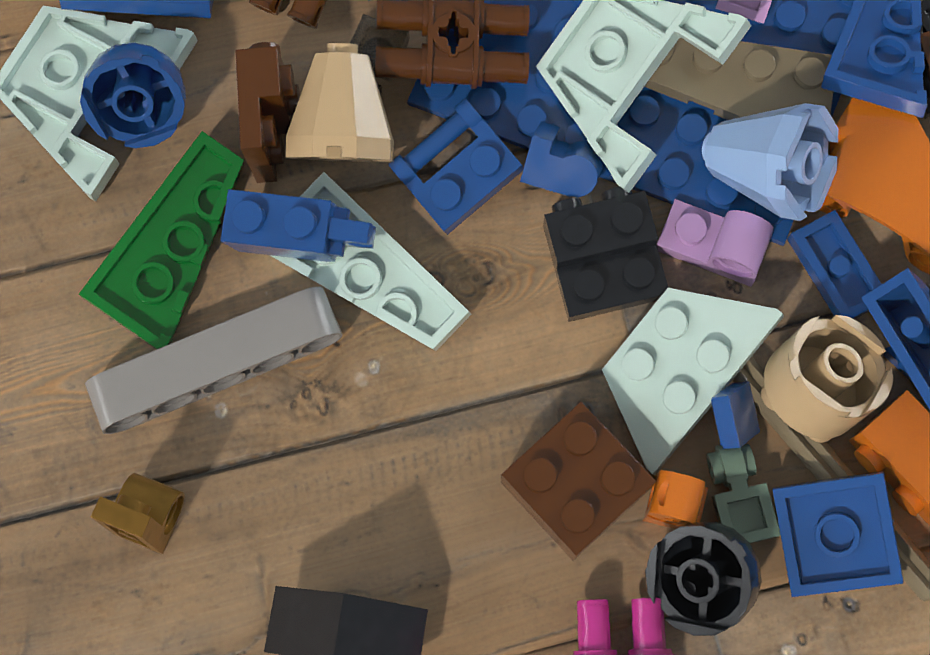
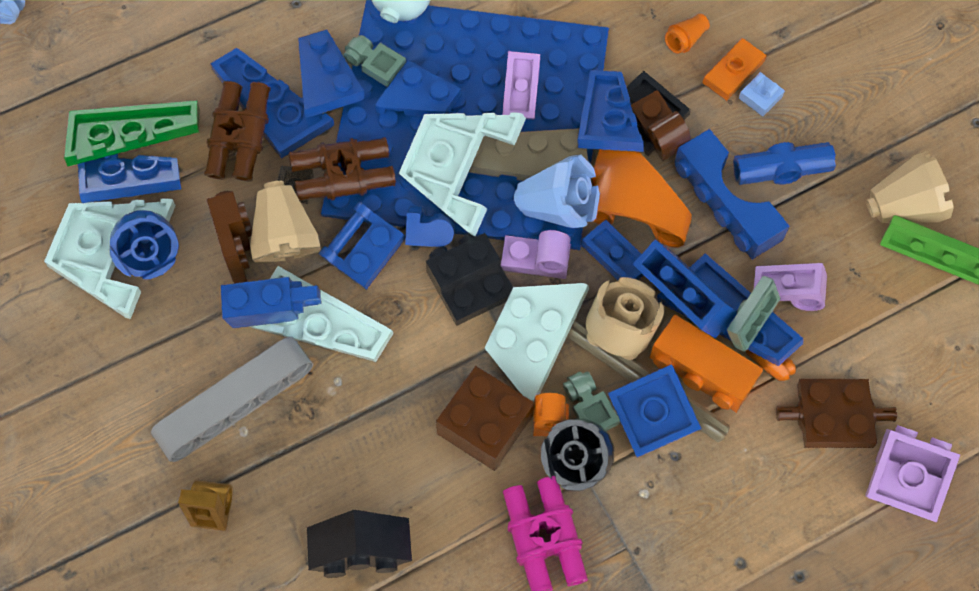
camera: 20 degrees left, 10 degrees down
(162, 252) = (183, 340): green wing -> none
(735, 415) = (574, 354): blue tile -> none

